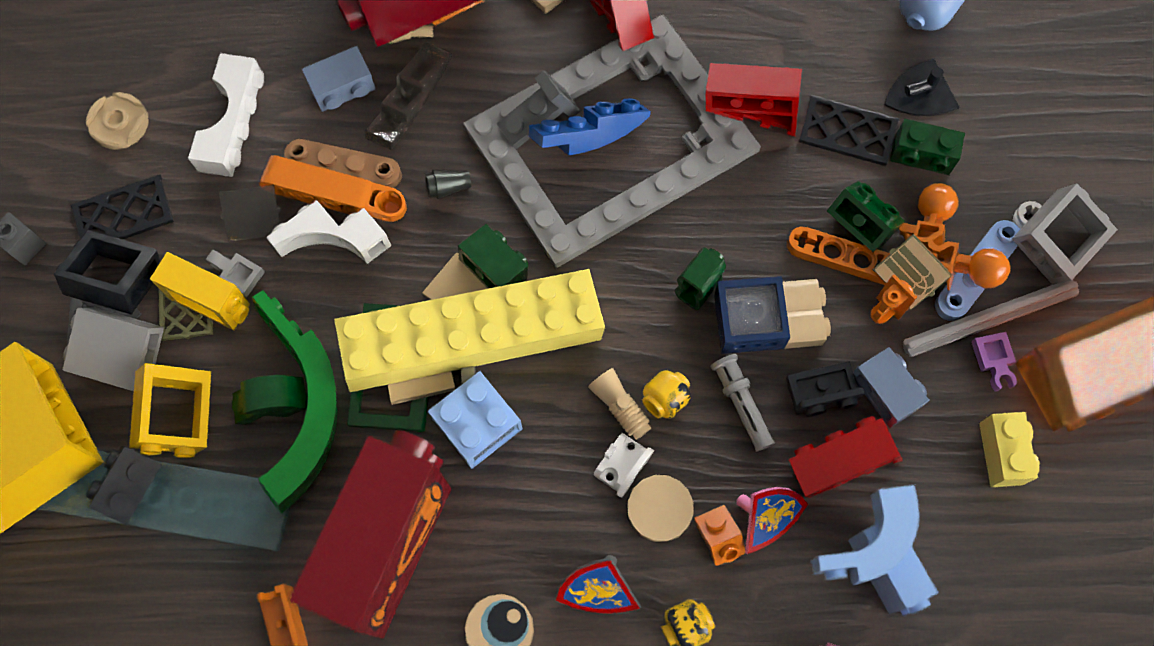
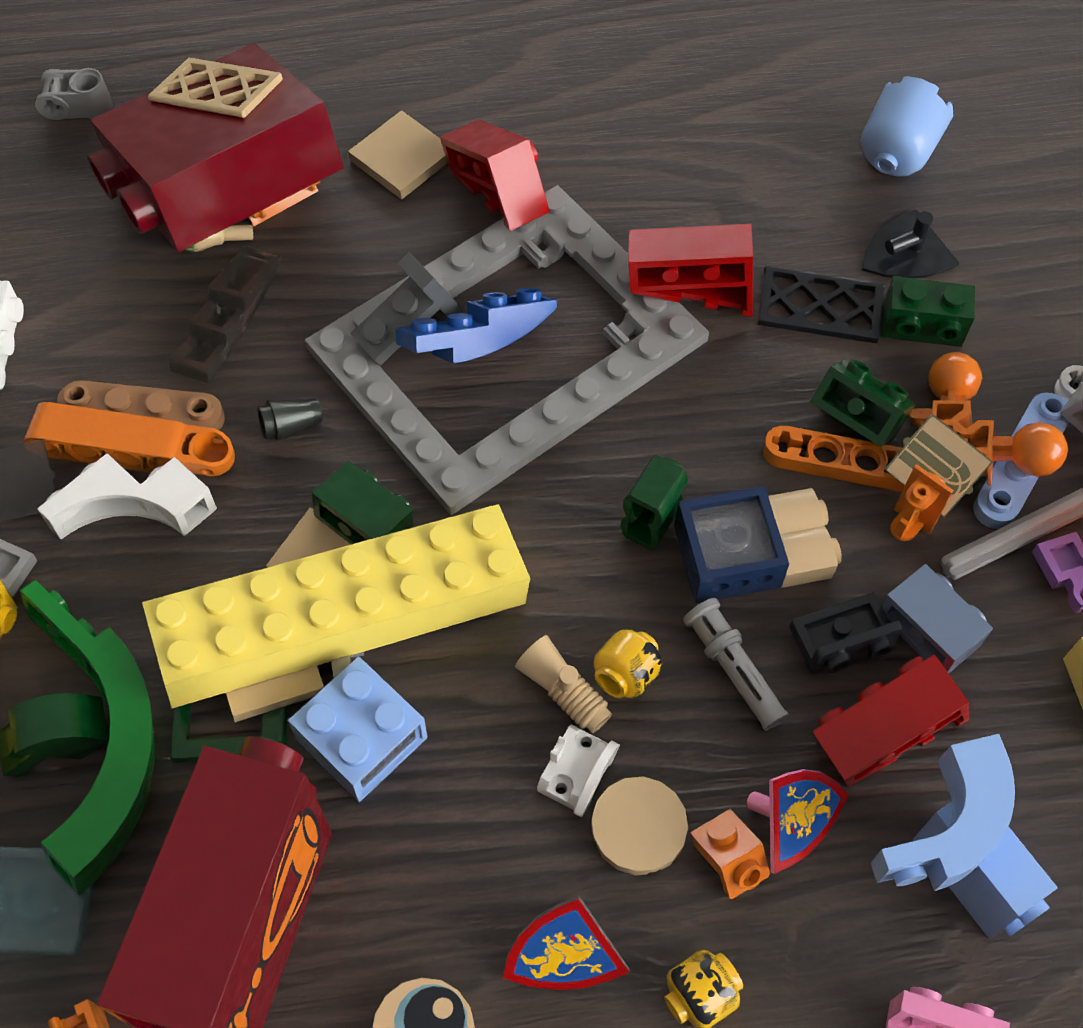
camera: 10 degrees left, 10 degrees down
(339, 79) = (128, 298): sand blue brick -> none

